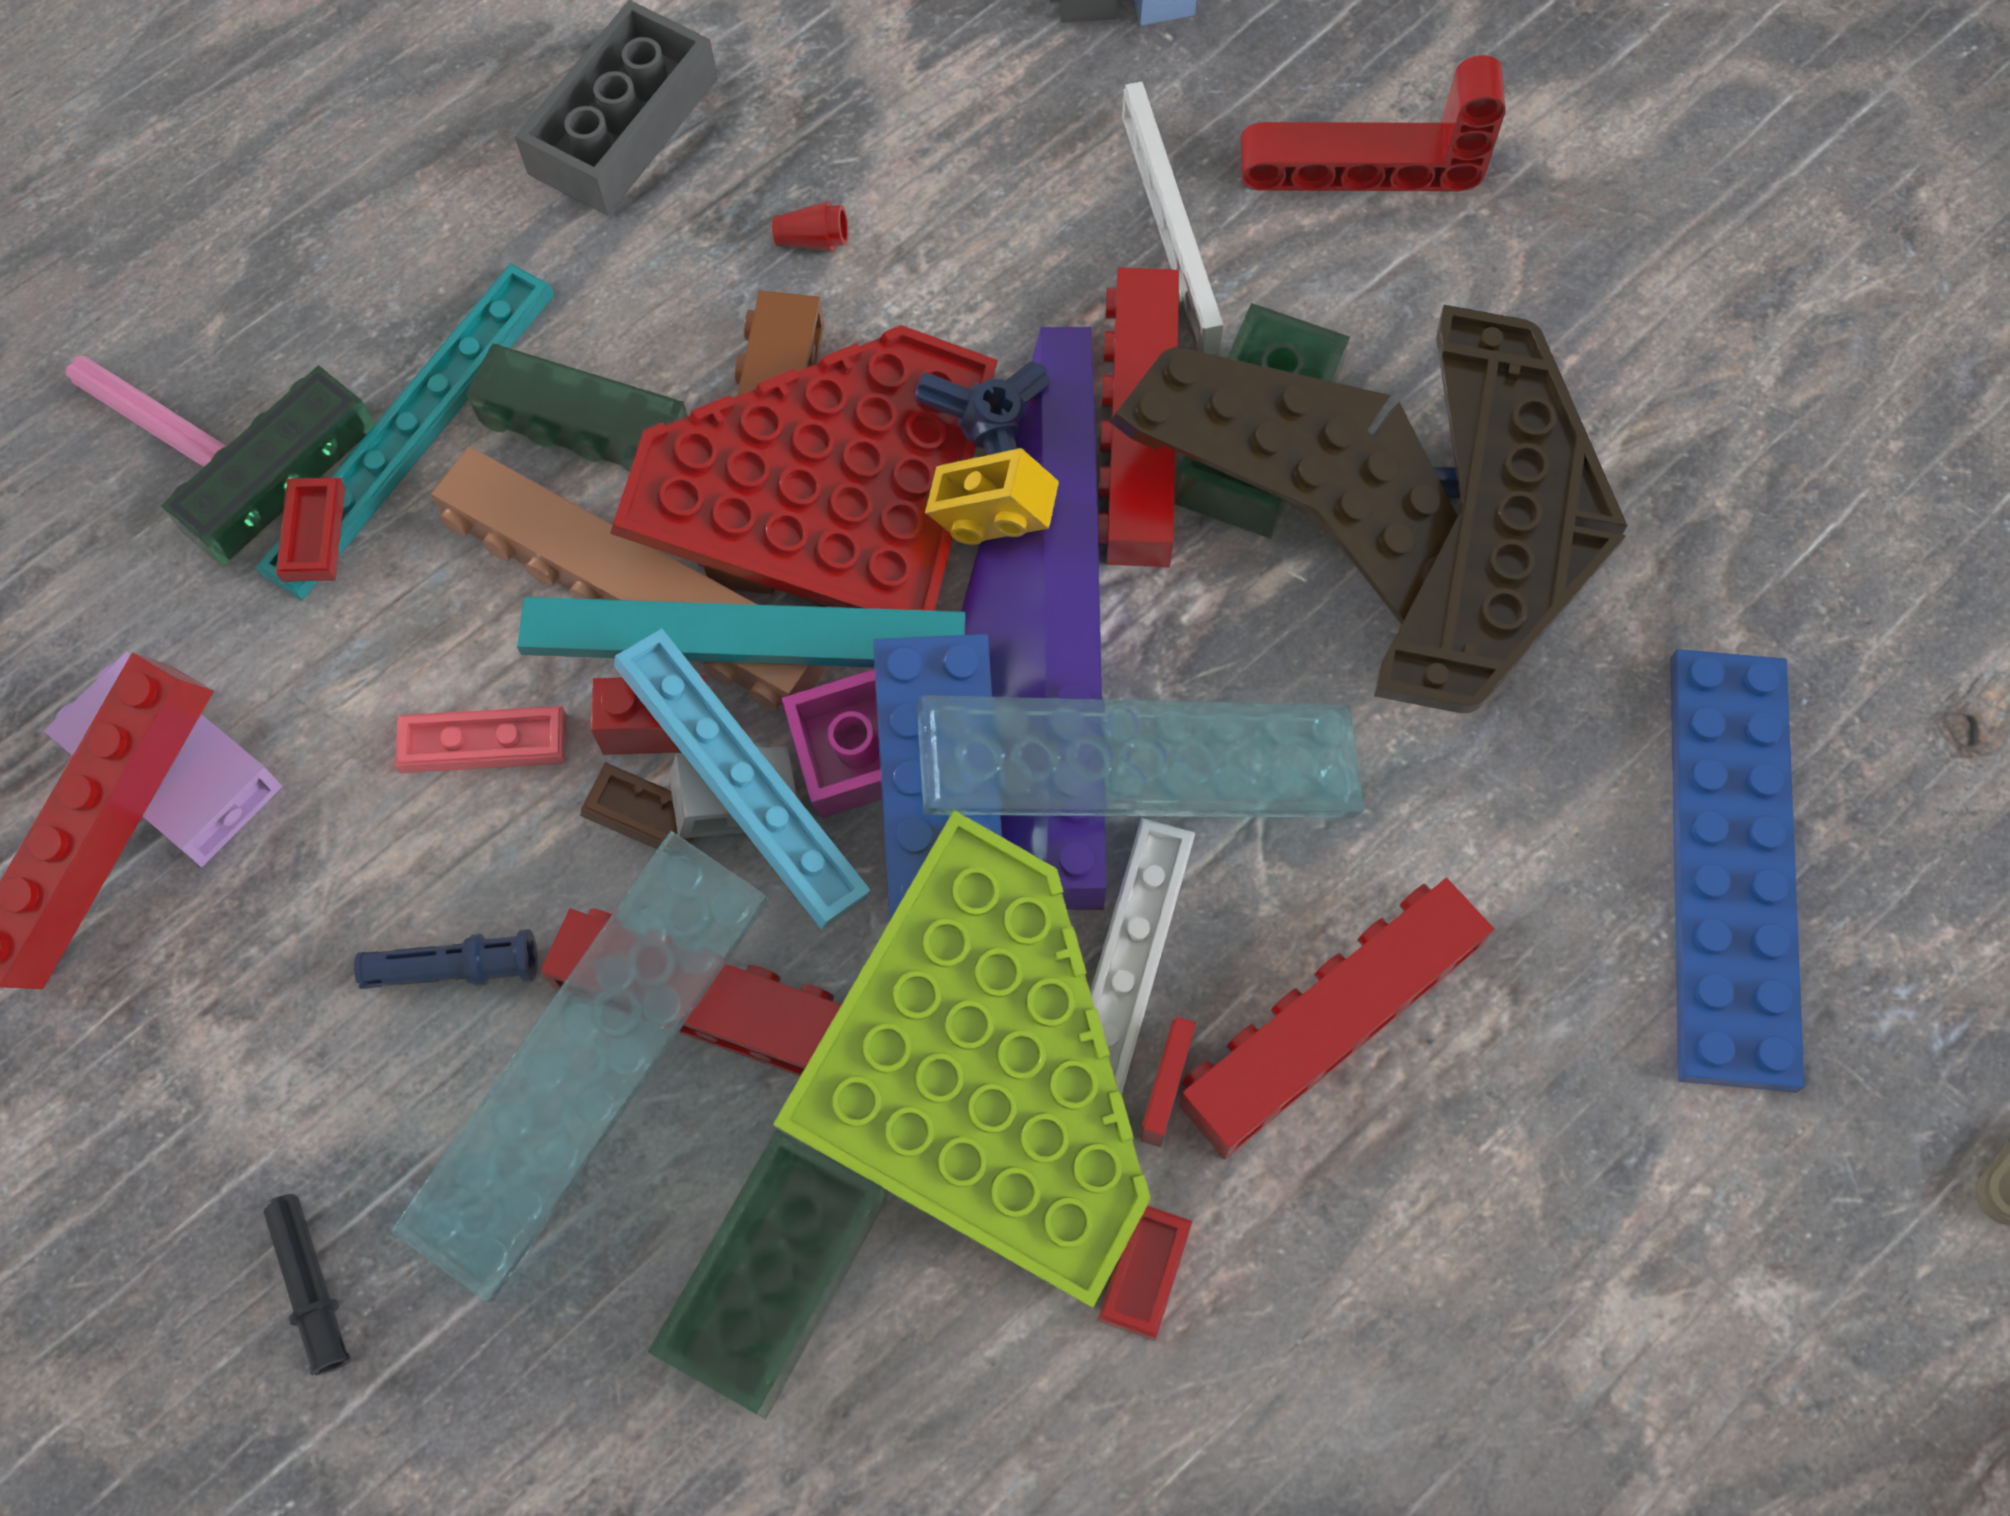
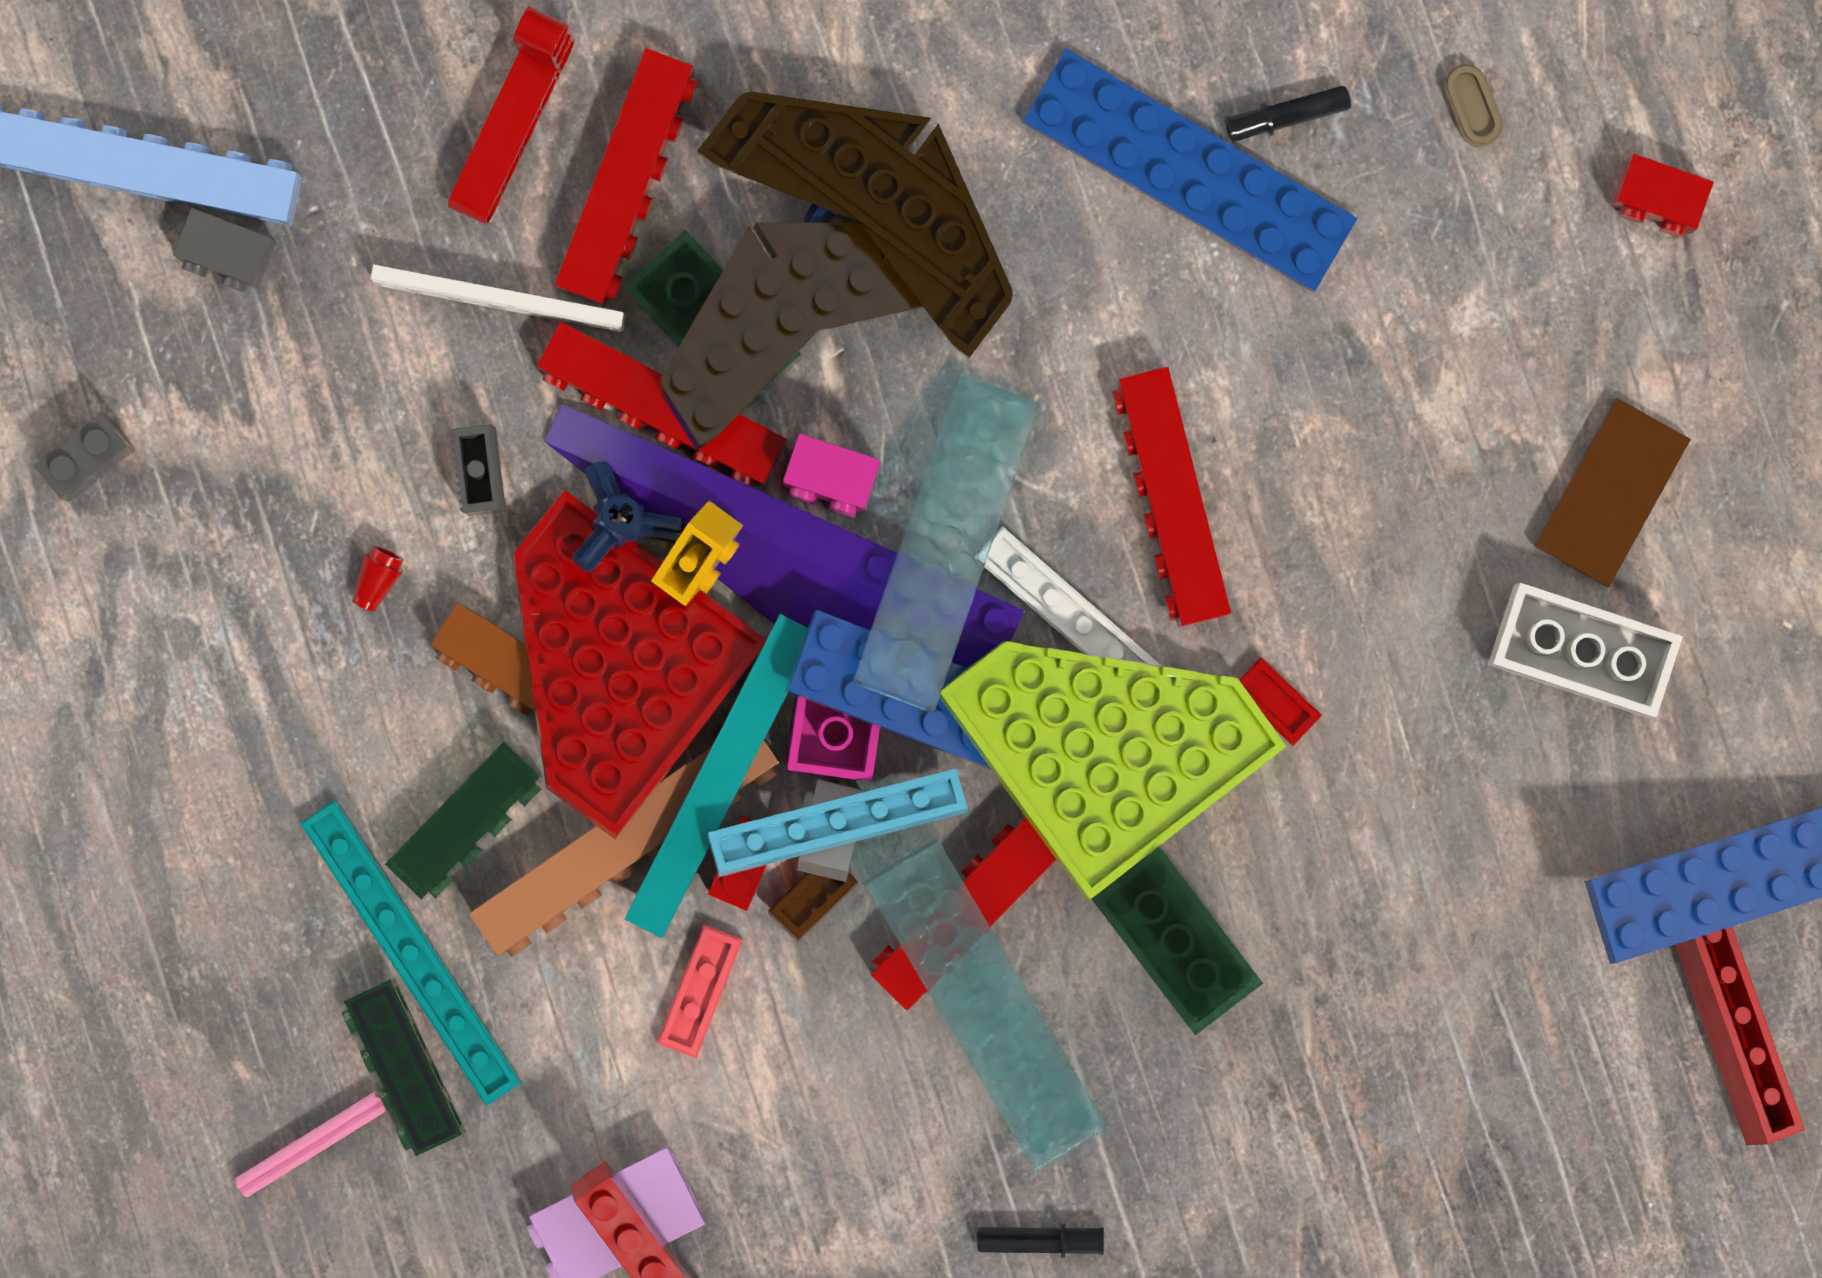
camera: 65 degrees left, 20 degrees up
(311, 529) = (477, 1054): red tile -> none
(472, 960) = (869, 1053): dark blue pin -> none
(617, 107) = (198, 684): dark grey brick -> none
(975, 263) = (478, 470): none -> dark grey brick
(1155, 606) = (831, 475): none -> dark pink brick
(1167, 1081) = (1165, 630): red tile -> none
(1372, 277) = (625, 177): none -> red brick
(1874, 945) = (1287, 113): none -> black axle

